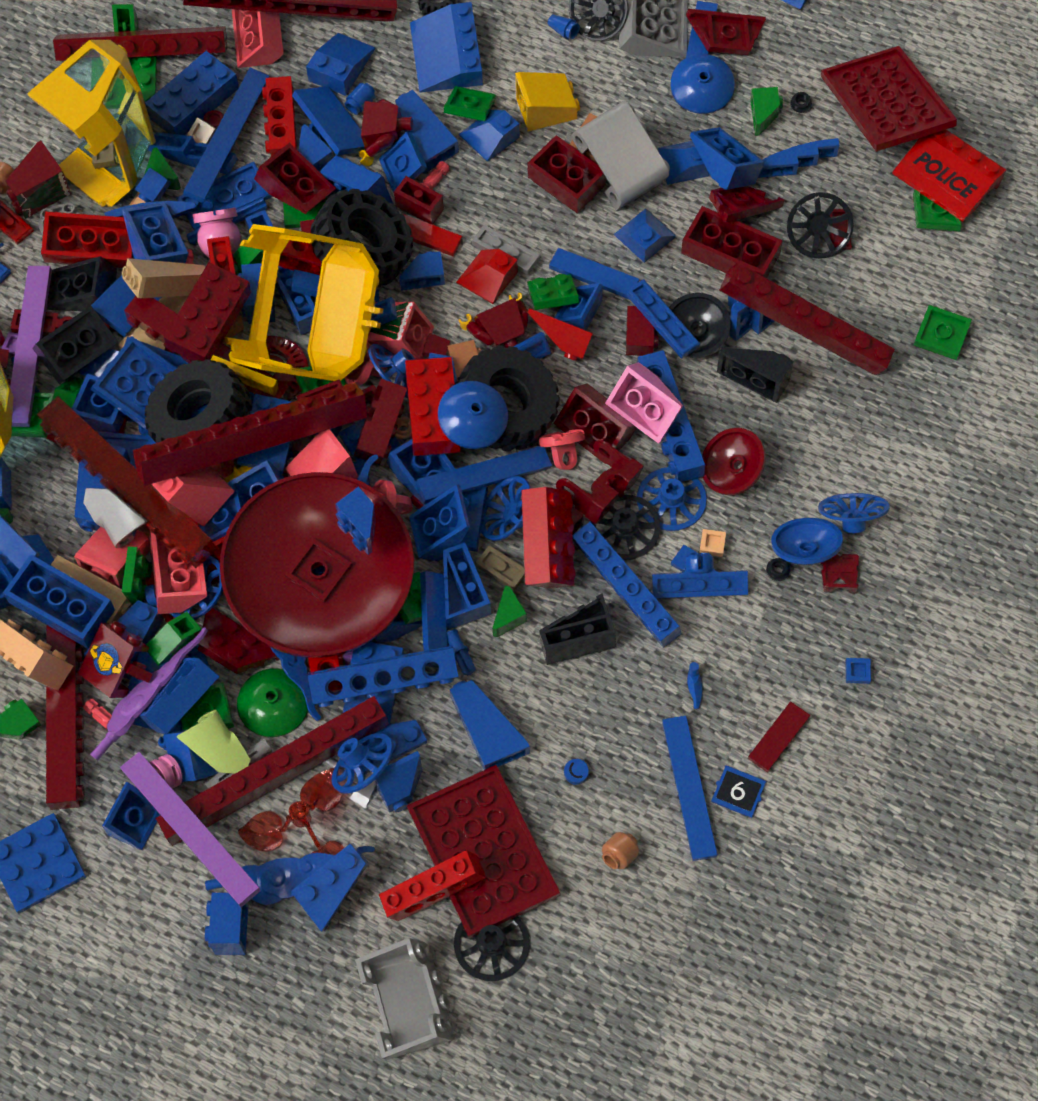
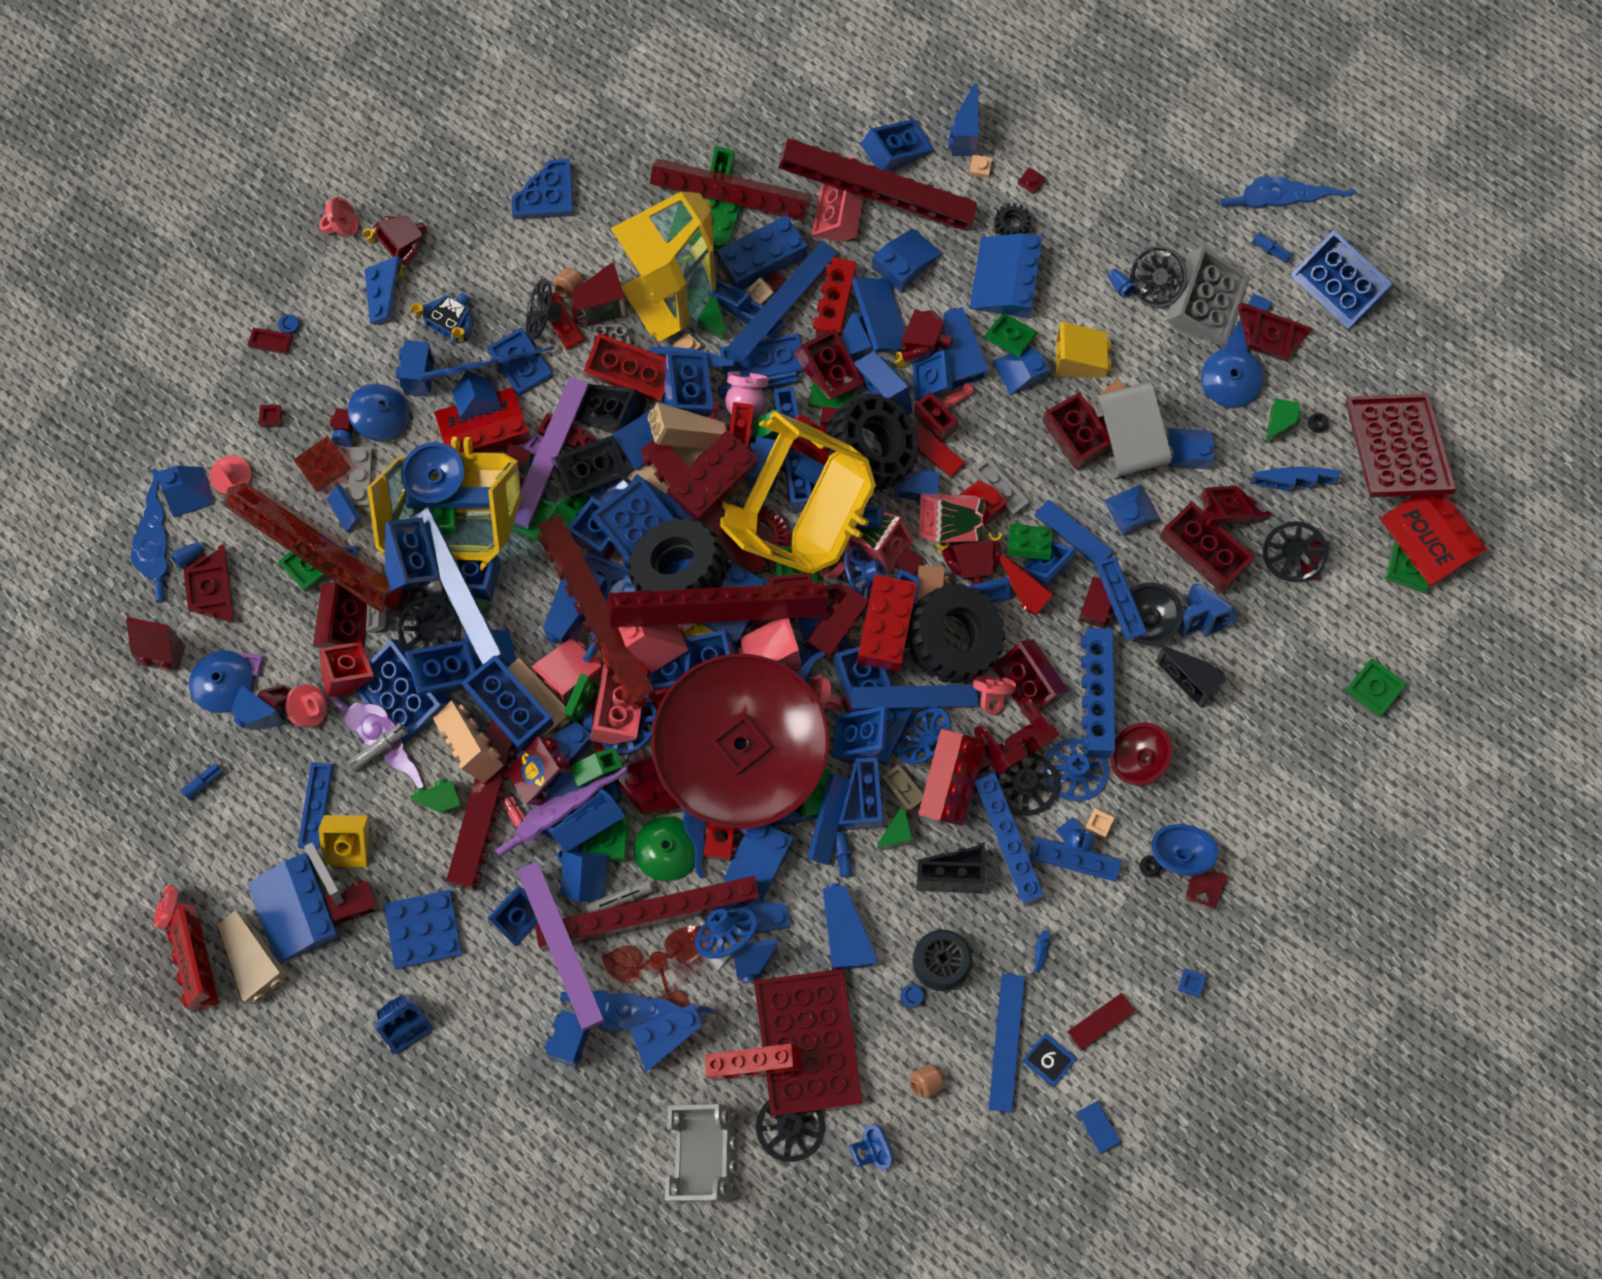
camera: 15 degrees right, 5 degrees up
(42, 965) = (401, 1023): none -> blue piece
(113, 515) = (576, 639): light grey panel -> none
(138, 671) = (557, 787): dark red plate -> none
(152, 186) = (700, 333): blue brick -> none
(168, 770) = (557, 884): bright pink wheel -> none
(216, 744) = (605, 875): yellowish green panel -> none
(251, 378) = (729, 544): yellow tile -> none
(357, 98) = (913, 300): blue brick -> none
(357, 517) = (788, 713): blue slope -> none
(393, 665) = (778, 852): blue brick -> none
(465, 290) = (951, 517): none -> slope
(469, 427) = (906, 651): blue dish -> none
(588, 934) = (876, 1148): none -> blue bracket
(592, 739) = (928, 966): none -> wheel
(644, 401) = (1079, 675): bright pink slope -> none
(726, 158) = (1229, 460): blue slope -> none
(806, 319) = (1251, 642): dark red brick -> none
(811, 842) = (1098, 1127): none -> blue tile
(854, 518) = (1234, 841): blue wheel -> none

